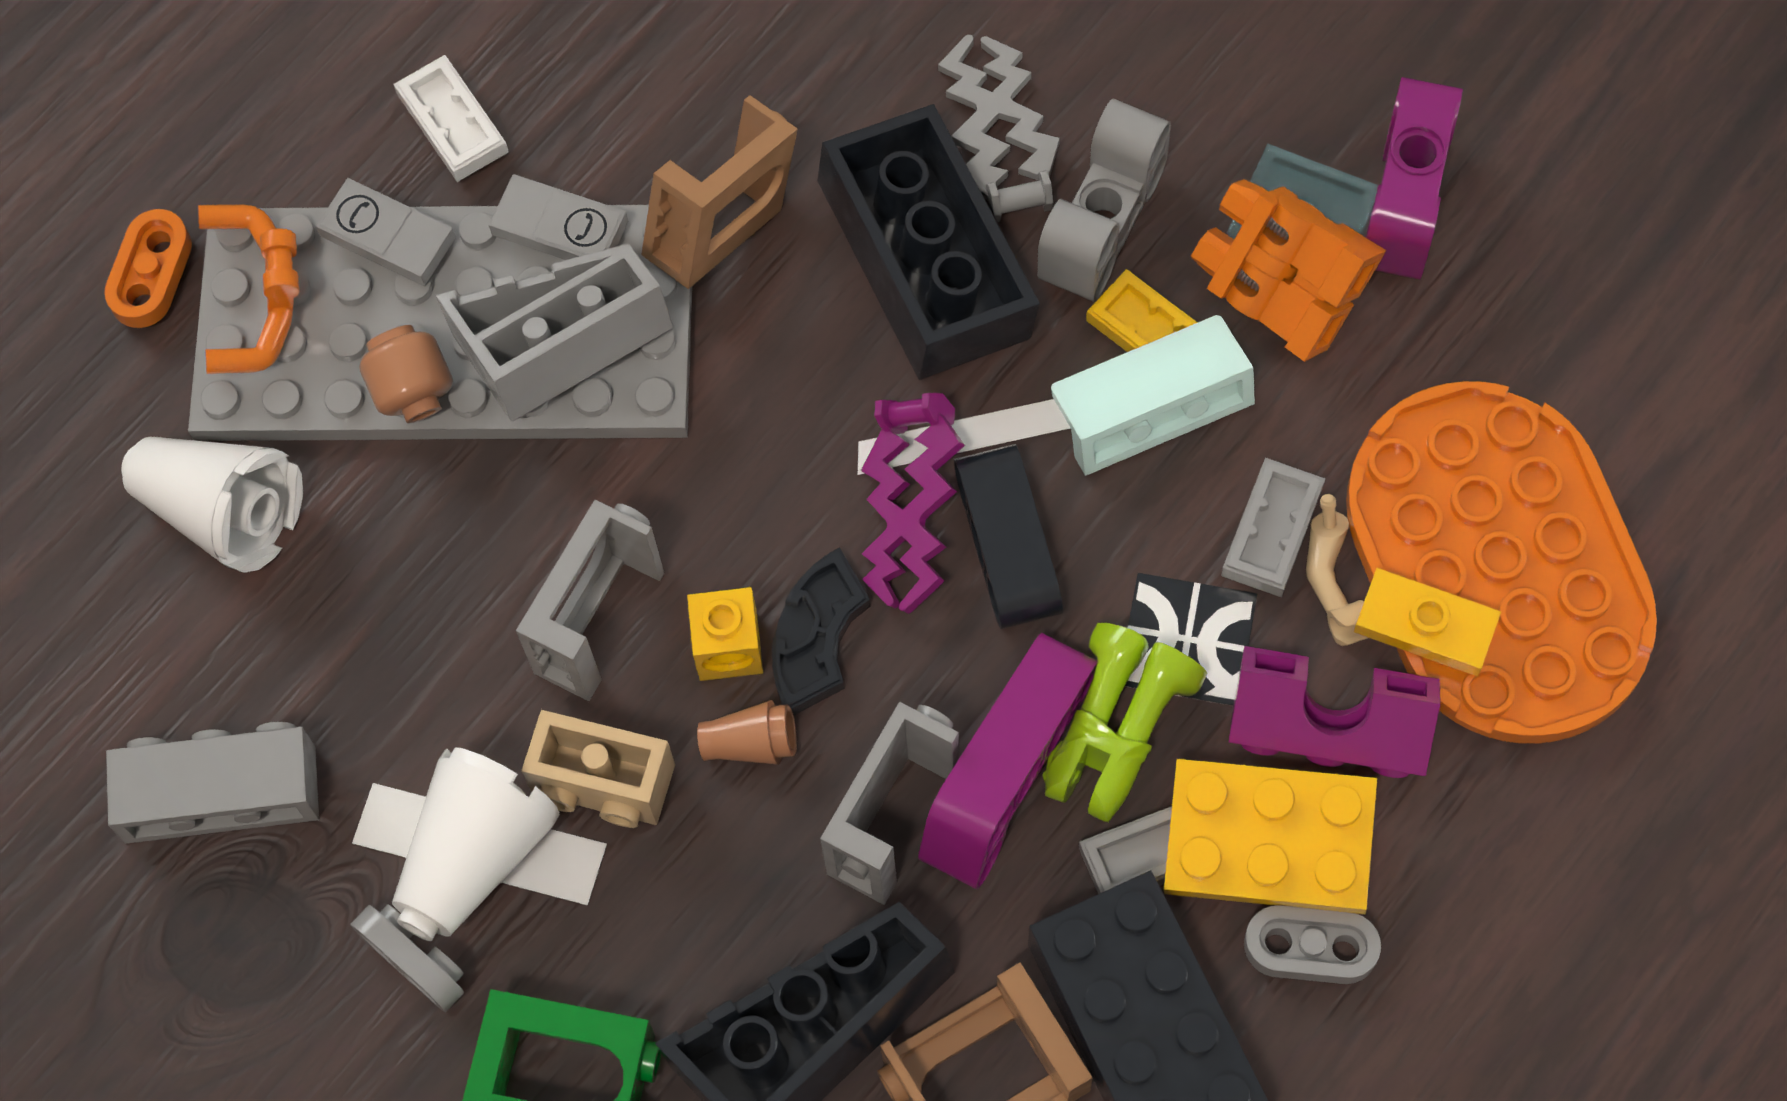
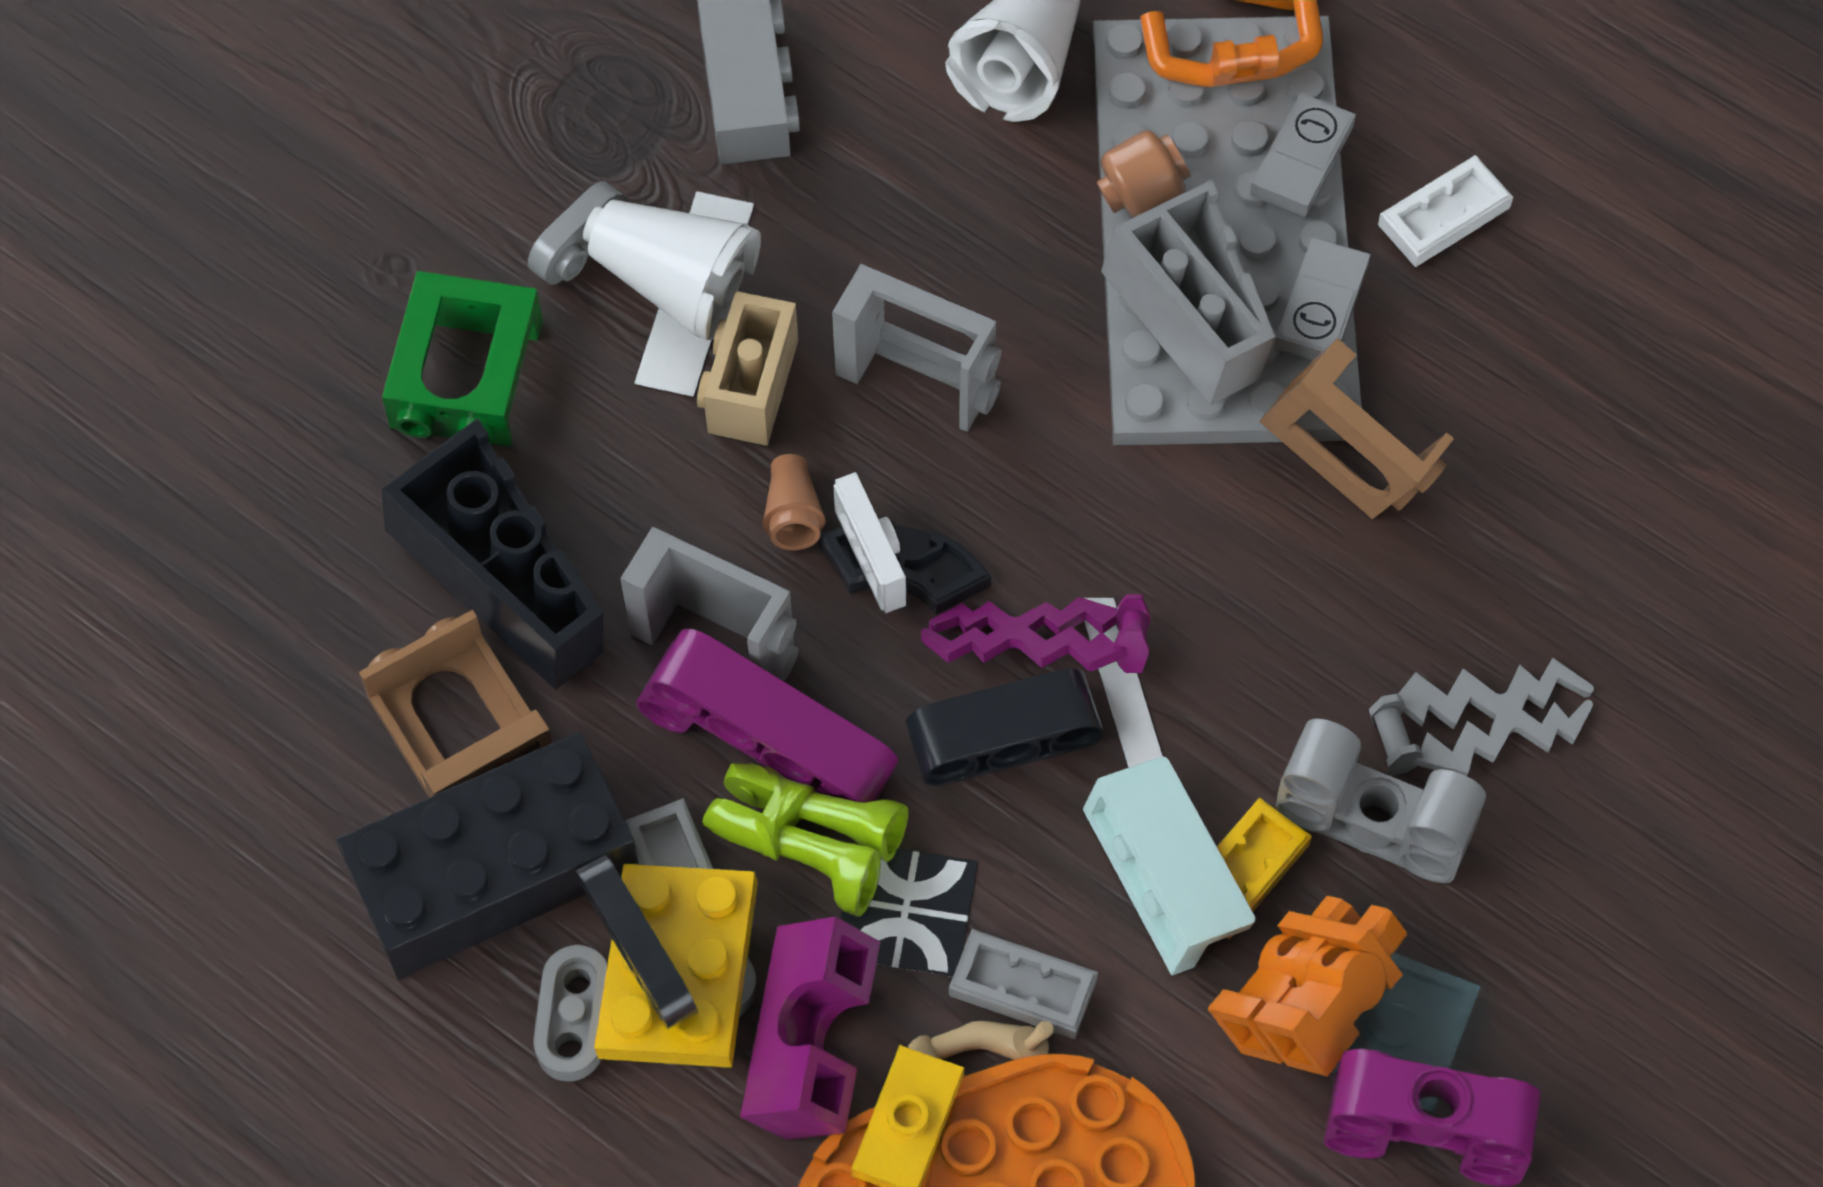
camera: 85 degrees right, 5 degrees down
(725, 634) = (892, 470): yellow brick -> none
(813, 647) = (872, 542): none -> white plate
(927, 241) = (1327, 637): black brick -> none
(1271, 857) = (636, 942): none -> black beam

